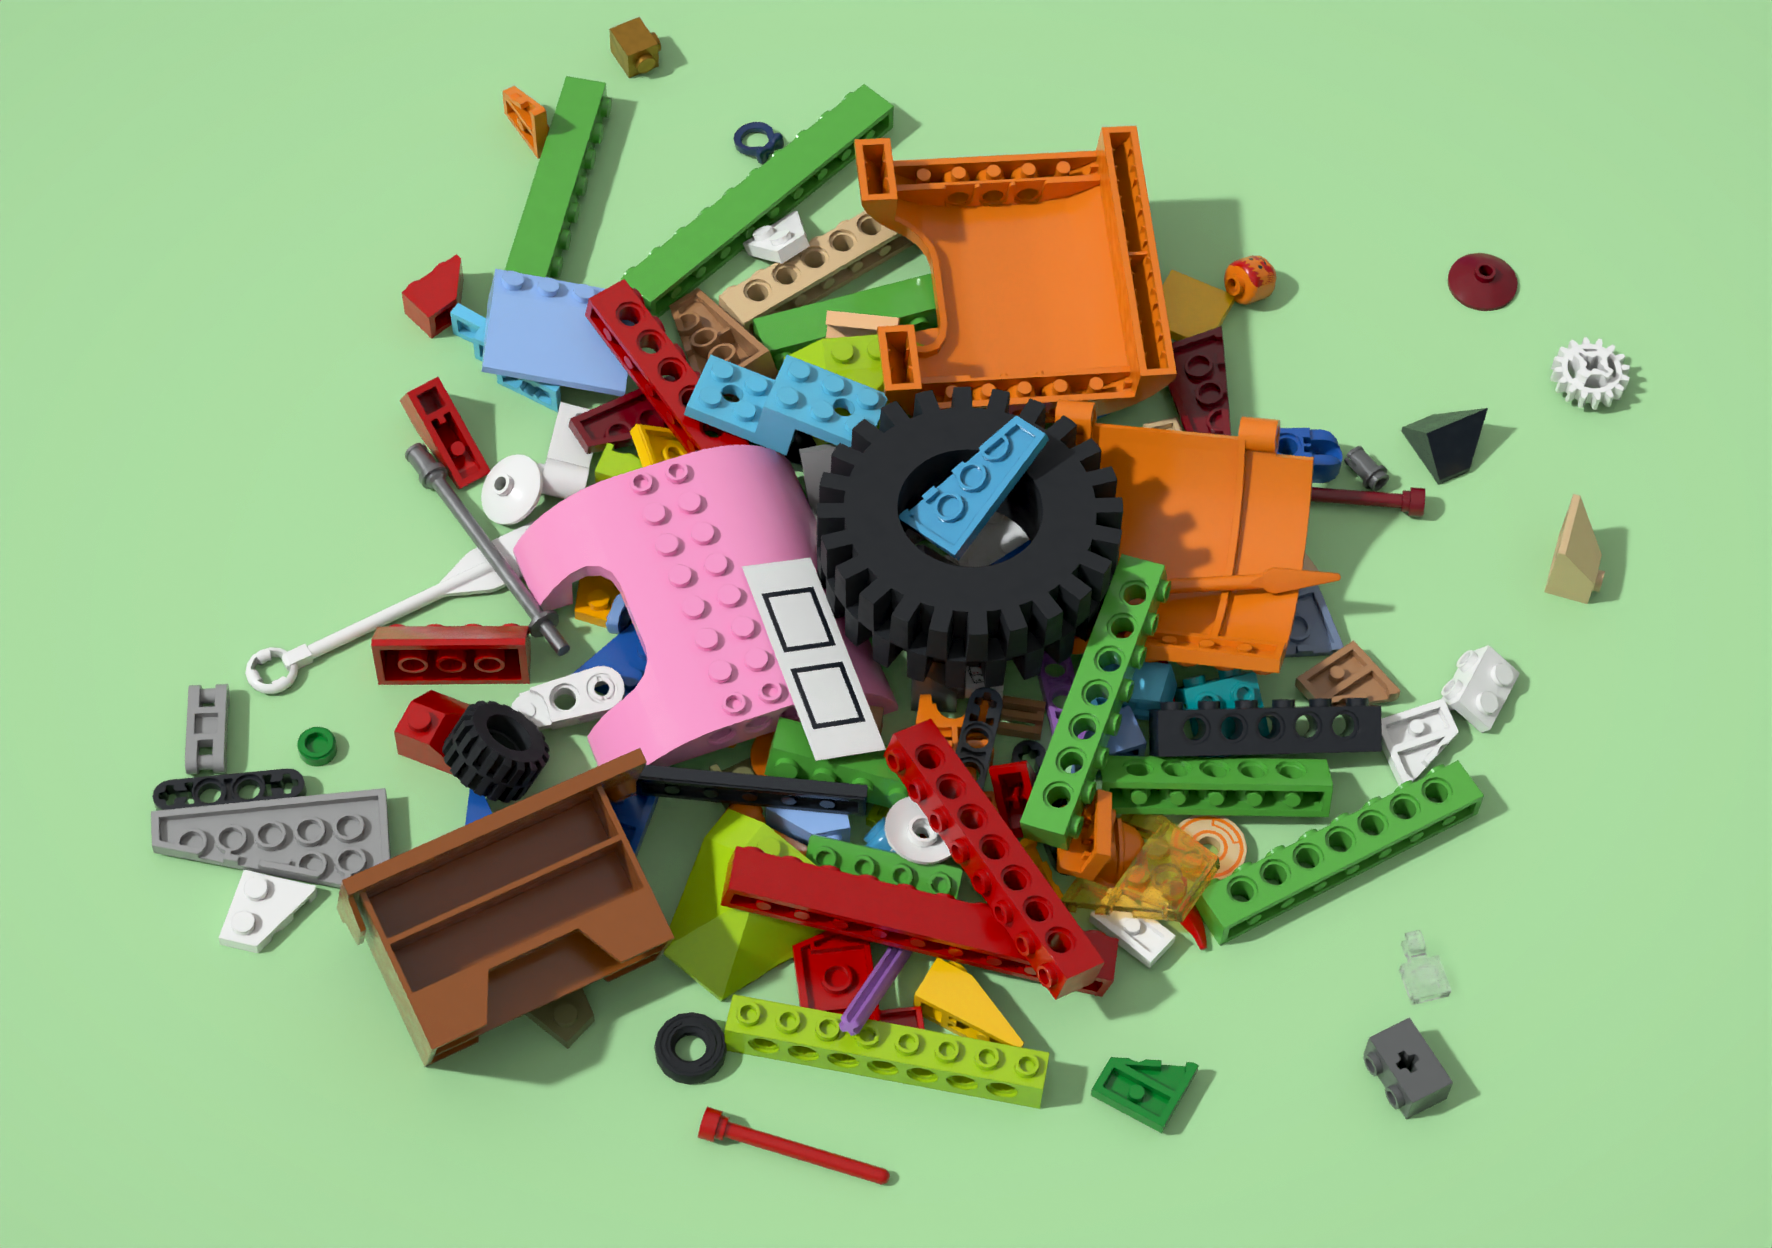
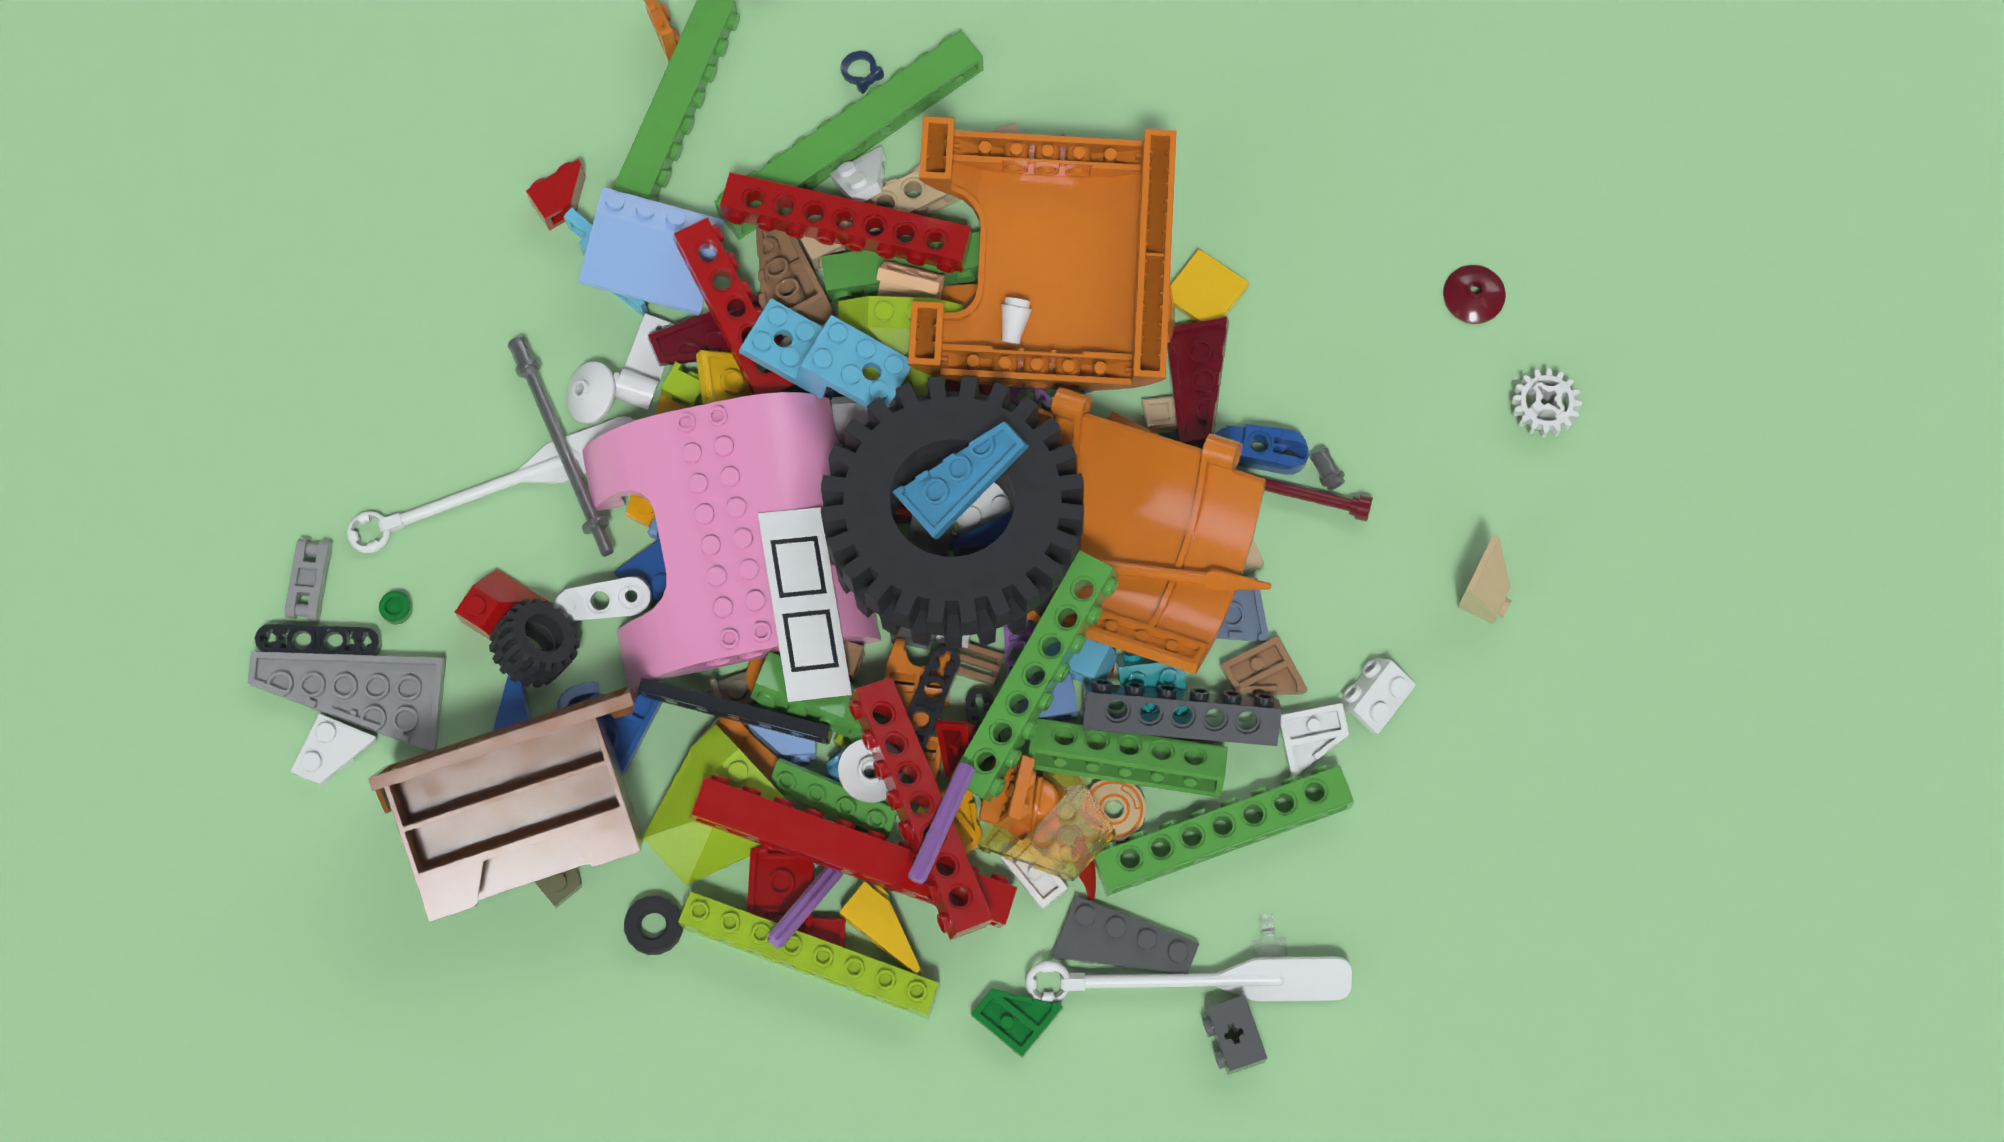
camera: 15 degrees right, 15 degrees up
(445, 432) = (544, 331): red slope -> none
(452, 654) = (516, 540): red slope -> none
(717, 1127) = (662, 998): red piece -> none
(777, 277) = (743, 190): none -> red brick
(987, 348) = (1014, 317): none -> white cone
(1024, 862) = (941, 823): none -> medium lavender axle
(1238, 986) = (1114, 939): none -> dark grey wing
(1250, 279) = (1264, 270): orange head -> none
(1429, 1001) = (1256, 978): none -> white piece
(1446, 441) = (1403, 452): black slope -> none

